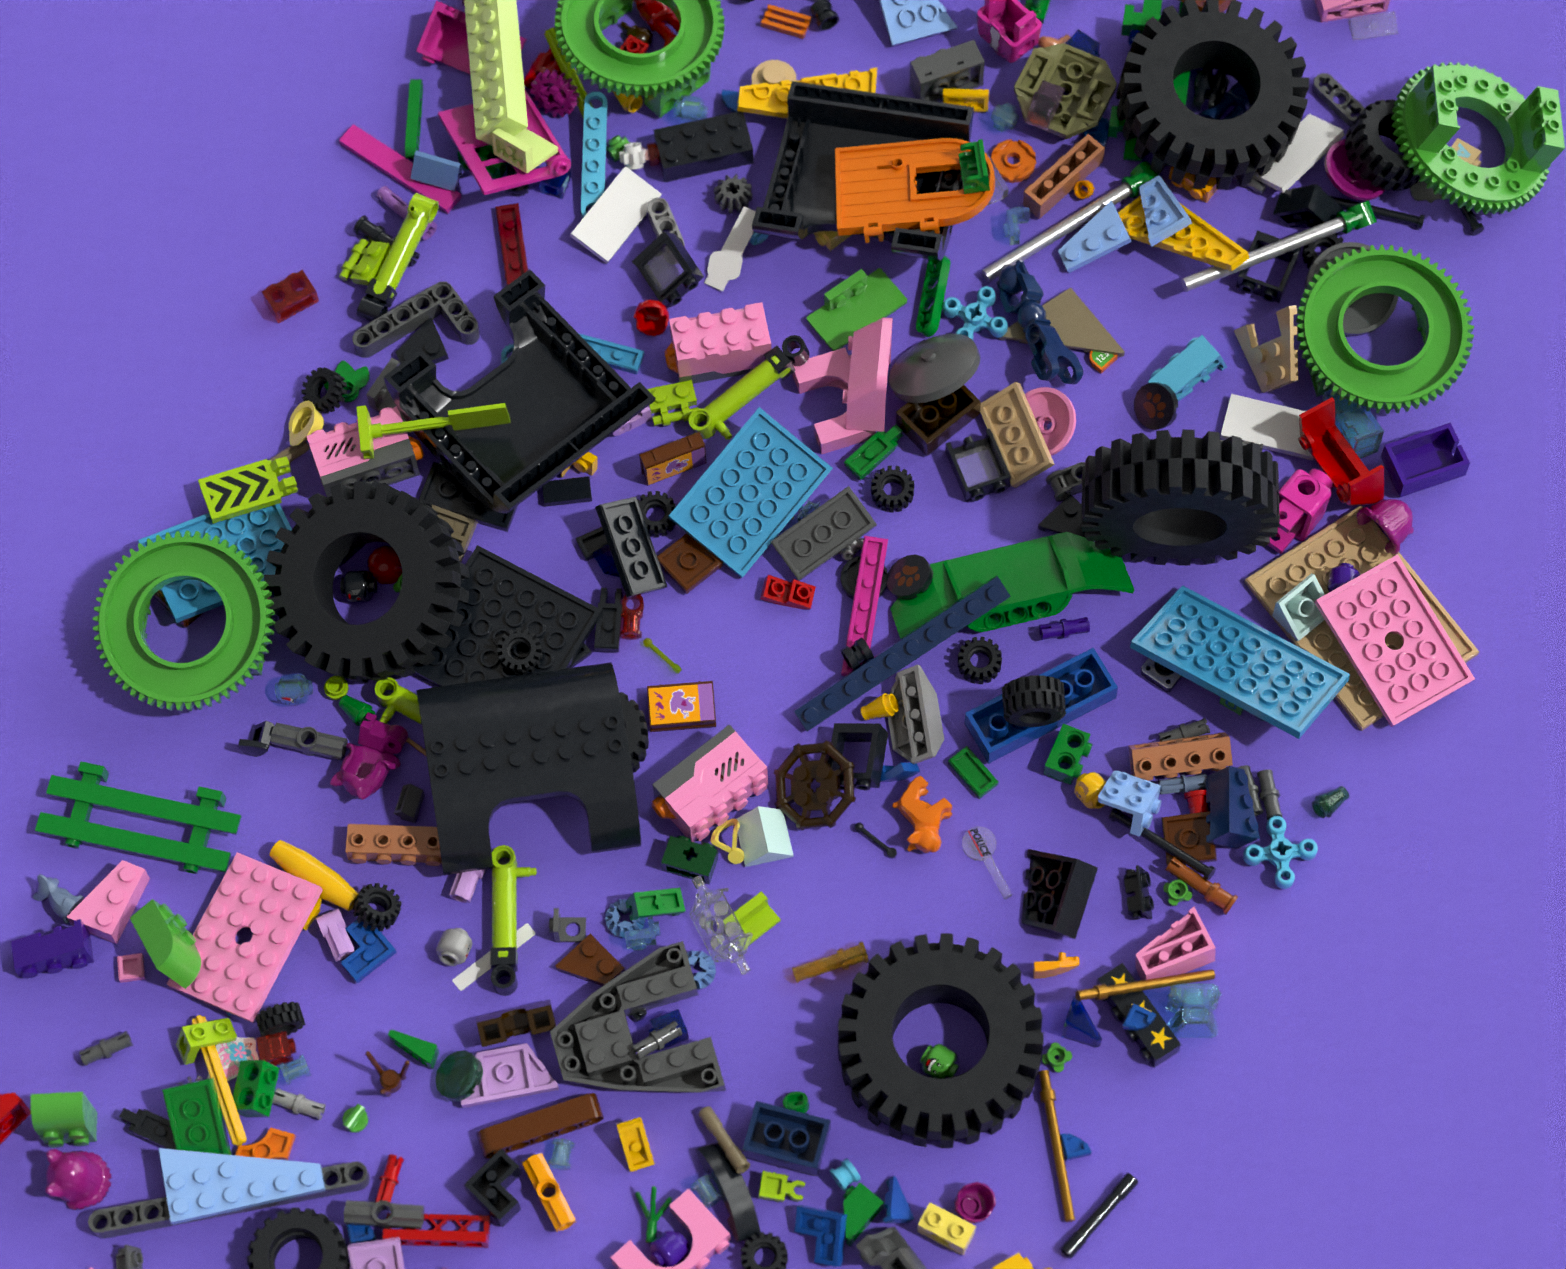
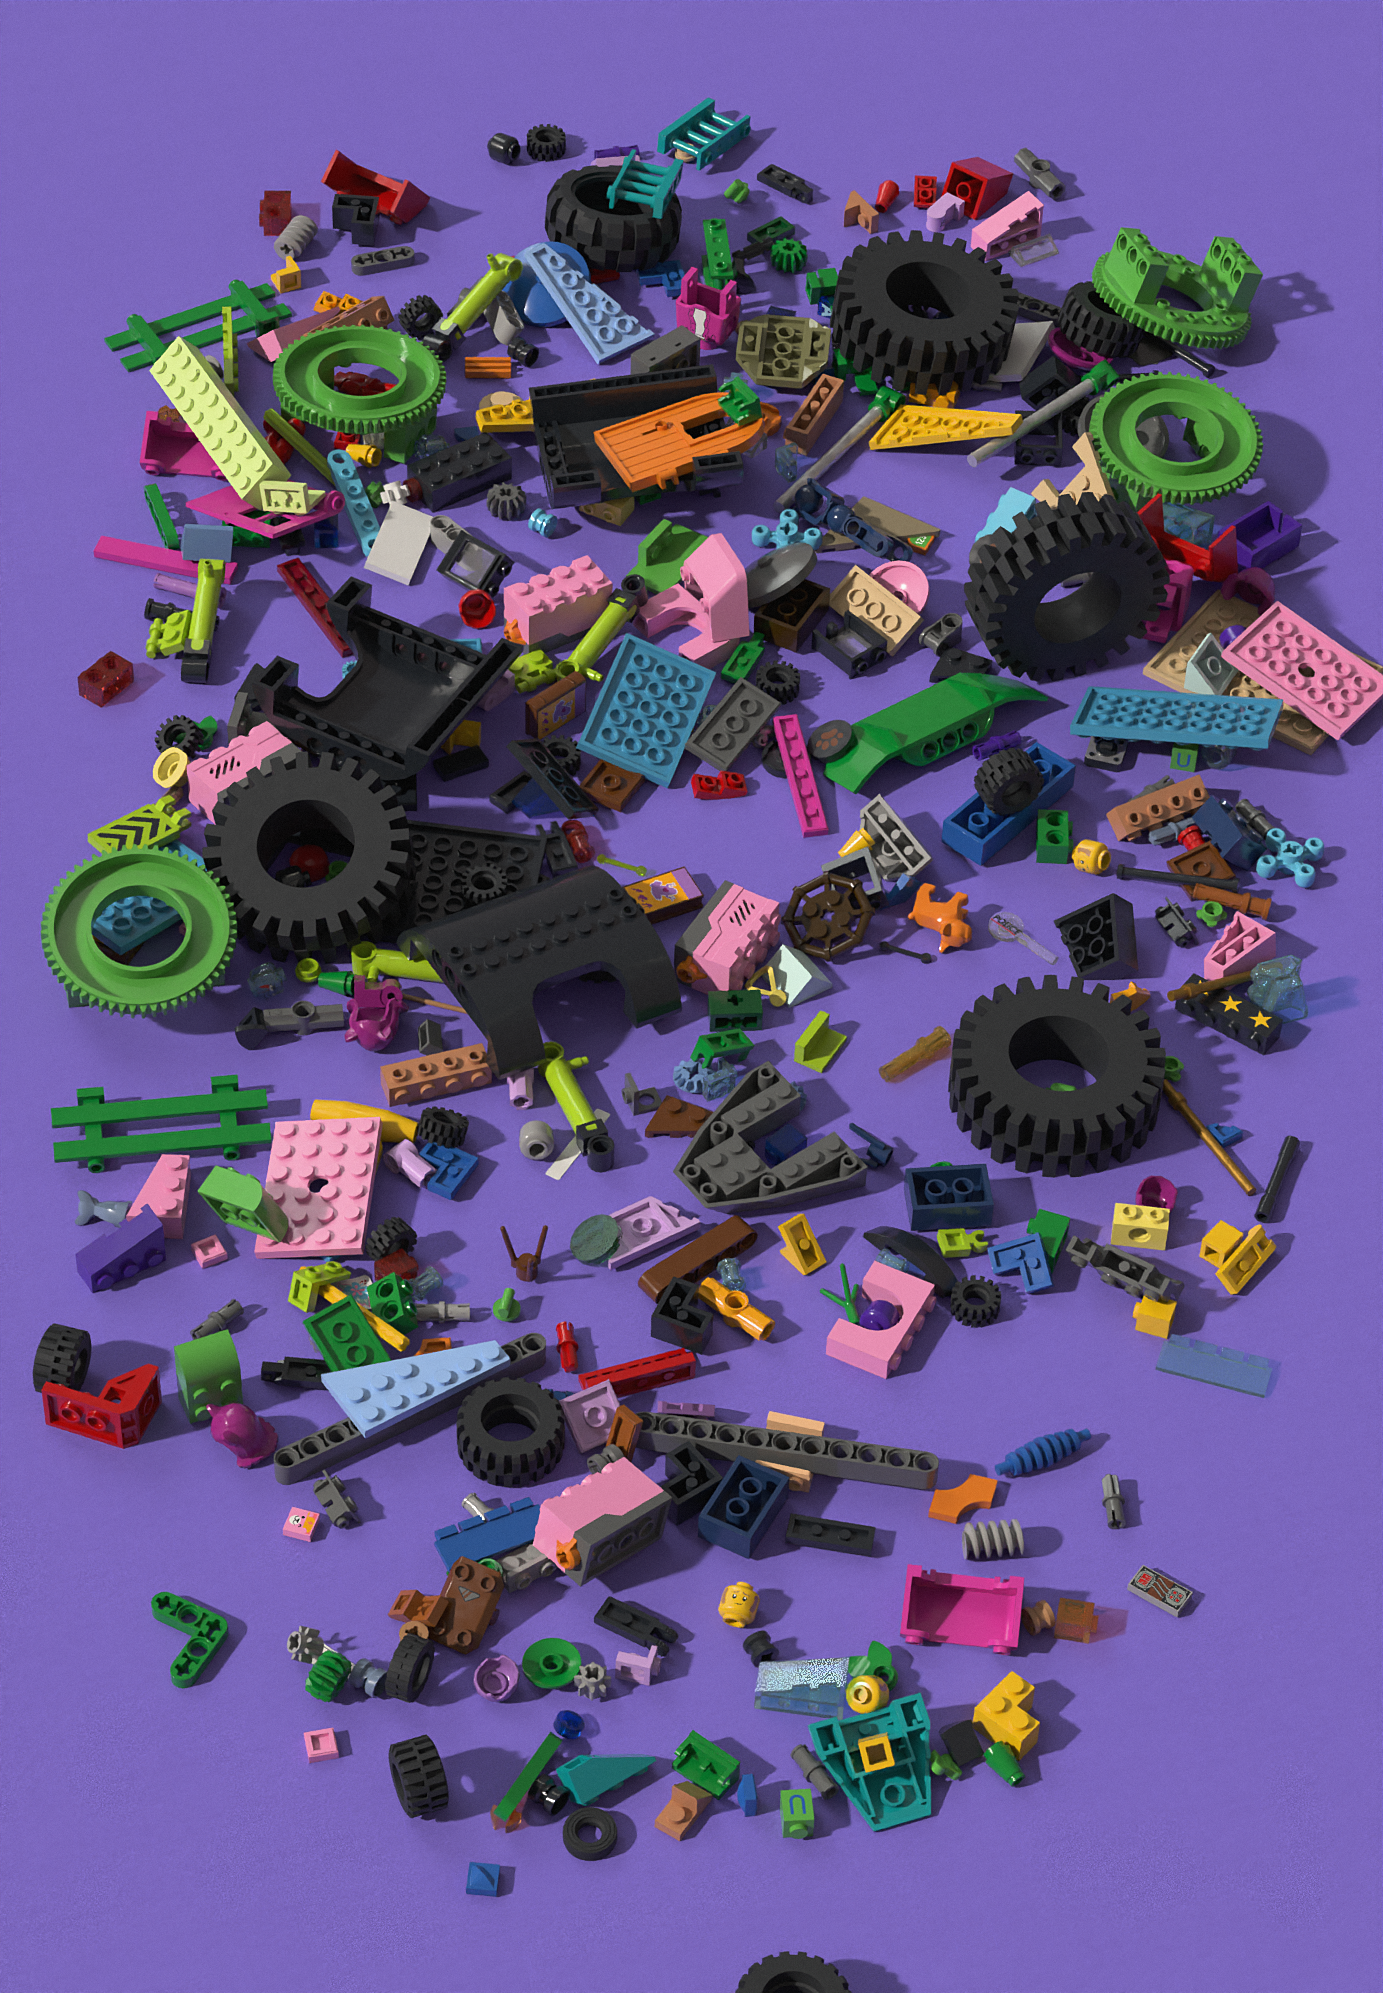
camera: 25 degrees left, 20 degrees down
(367, 1214) = (578, 1369): dark grey piece -> none
(417, 318) = (234, 665): dark grey beam -> none
(419, 1049) = (532, 1229): green slope -> none
(459, 419) = (344, 707): lime piece -> none
(504, 1024) = (632, 1181): dark brown arch -> none
(554, 93) = (304, 463): magenta gear -> none
(656, 1040) = (782, 1147): dark grey pin -> none
(728, 262) = (528, 551): white sticker -> none
(729, 940) = (811, 1051): clear plate -> none
(731, 1151) = (901, 1222): dark tan piece -> none
(750, 1062) = (878, 1151): none -> dark blue plant
(845, 1174) = (1019, 1213): medium azure wheel -> none
(856, 653) = (812, 808): black wheel -> none
(896, 1204) = (1081, 1221): blue tile -> none
(901, 653) = (856, 794): dark blue plate -> none
(929, 318) = (741, 528): green beam -> none
(973, 772) = (970, 876): green tile -> none
(979, 646) = (928, 798): black tyre -> none
(1044, 105) = (771, 362): slope -> none
(1079, 1026) = (1180, 1037): clear blue slope -> none
(1083, 193) = (836, 417): light orange hinge -> none
(1097, 238) = (869, 453): light blue wing -> none
(1132, 796) = (1139, 840): light blue bracket -> none
(1138, 1018) = (1233, 1008): blue tile -> none
(1162, 211) = (921, 412): light blue wing -> none
(1329, 802) = (1313, 810): cone -> none

